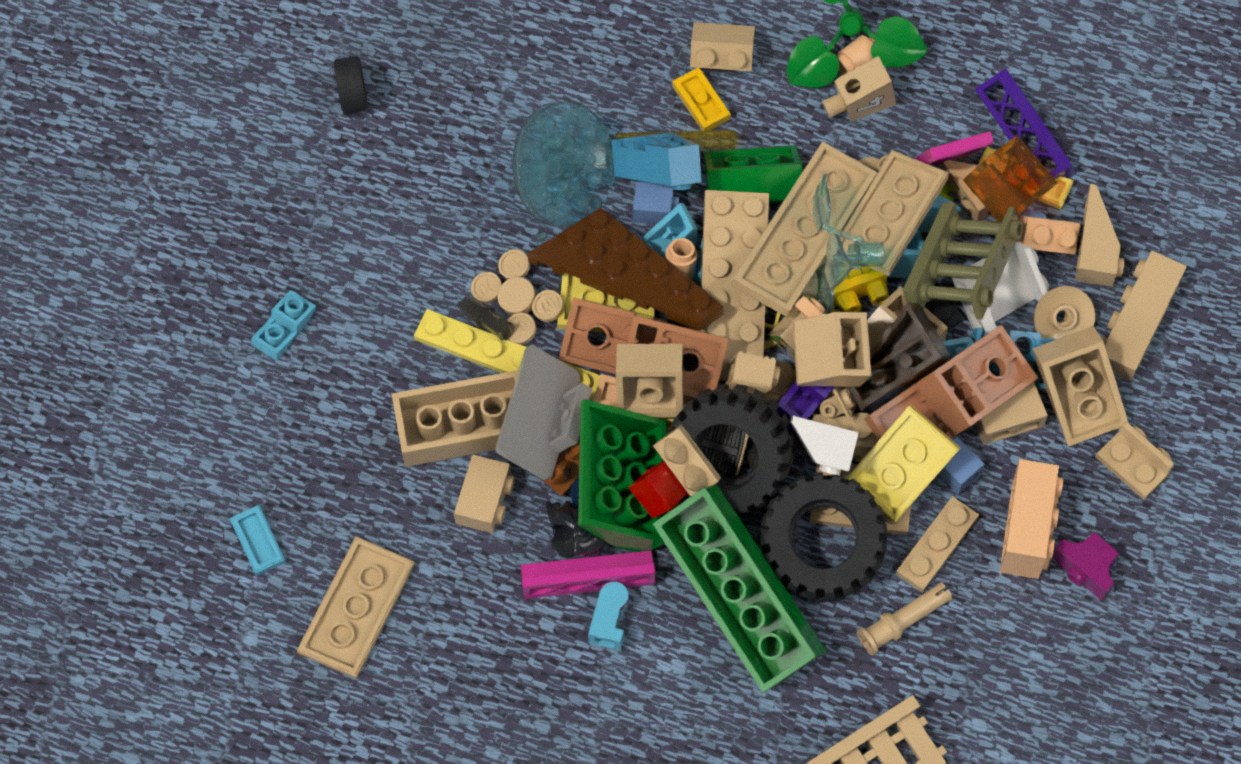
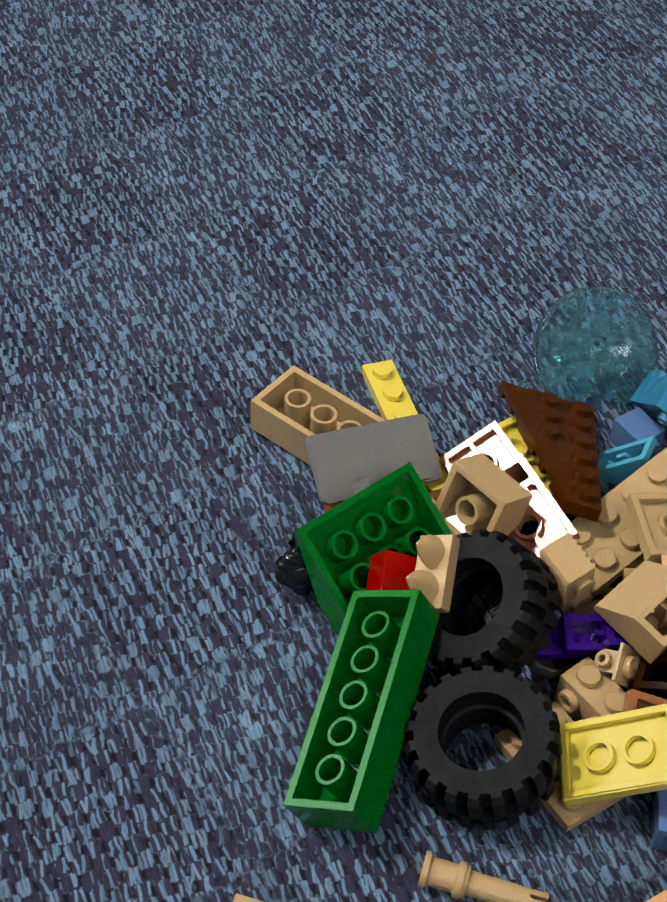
camera: 45 degrees right, 20 degrees down
(257, 540) = (101, 380): medium azure tile -> none
(284, 325) = (297, 294): medium azure slope -> none
(350, 84) = (508, 213): black tyre -> none
(356, 607) = (99, 471): tan tile -> none
(484, 494) = (274, 484): tan brick -> none
(486, 318) = (424, 396): clear smoke axle -> none
(517, 295) = (462, 403): tan piece -> none
(587, 574) = (274, 602): dark pink fence -> none
(611, 604) = (249, 639): medium azure leg -> none
(683, 256) = (613, 471): light nougat brick -> none
(826, 444) = (566, 668): white slope -> none
(937, 544) = (584, 864): tan plate -> none

